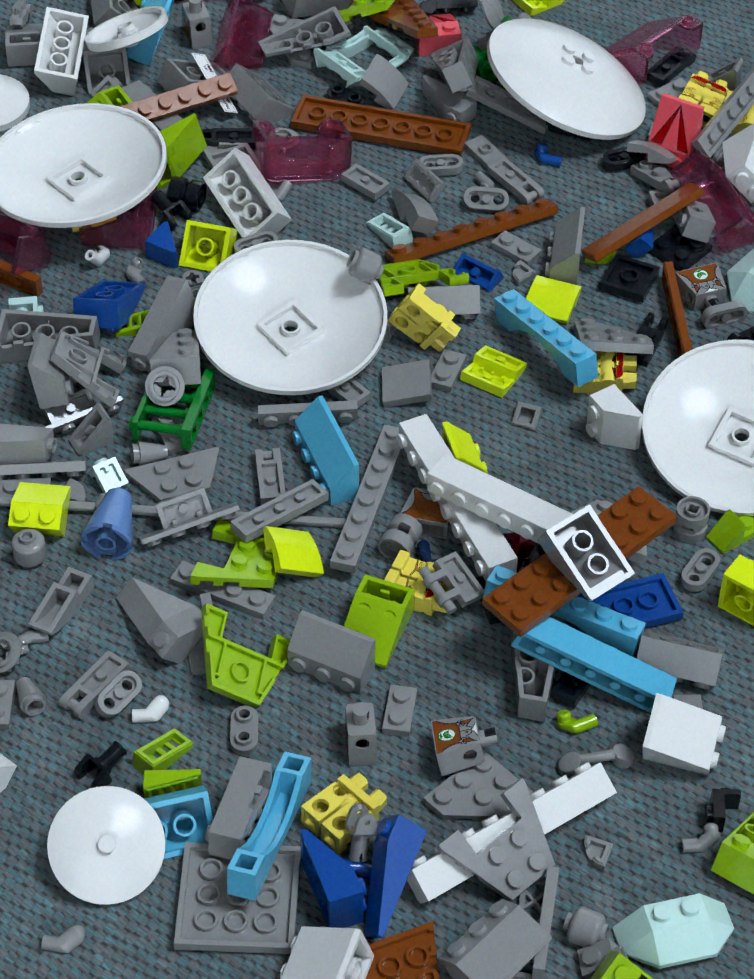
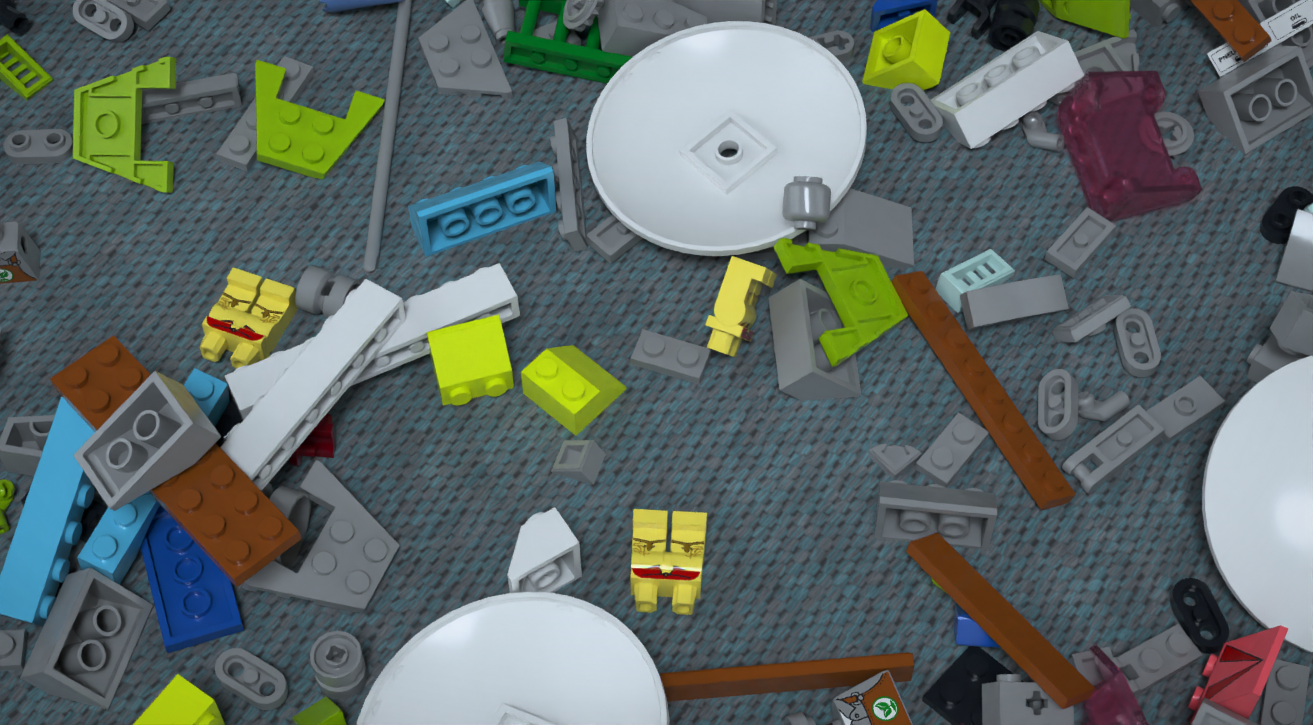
camera: 90 degrees right, 10 degrees up
(153, 712) = (78, 56): white arm -> none
(163, 620) = (199, 43): light grey wedge -> none
(186, 512) = (375, 59): light grey bracket -> none
(230, 135) = (1158, 58): black hinge -> none
(269, 474) = (459, 150): light grey plate -> none
(279, 510) = (377, 154): light grey plate -> none
(293, 552) = (306, 172): neon yellow slope -> none
(331, 652) = (128, 221): light grey slope -> none
(367, 502) = (396, 256): light grey plate -> none
(381, 612) = (184, 269): lime slope -> none
(384, 125) = (1221, 264): dark orange plate -> none
(399, 710) = (47, 306): light grey plate -> none
(406, 383) = (635, 302): light grey tile -> none
(424, 551) = (296, 330): dark blue arm -> none
(457, 578) = (229, 348): light grey plate -> none
(477, 413) = (569, 386): none -> neon yellow slope
(478, 272) = (890, 397): blue slope -> none
(493, 371) = (671, 416): neon yellow slope -> none
(546, 158) = (1184, 498): blue arm -> none
(554, 297) = (832, 496): neon yellow slope -> none
(573, 357) = (656, 489): medium azure arch -> none
(611, 338) = (720, 559): light grey plate -> none
(629, 278) = (890, 610): black plate -> none
(653, 333) = (747, 632): black hinge -> none
(656, 153) = (1198, 648): light grey slope -> none

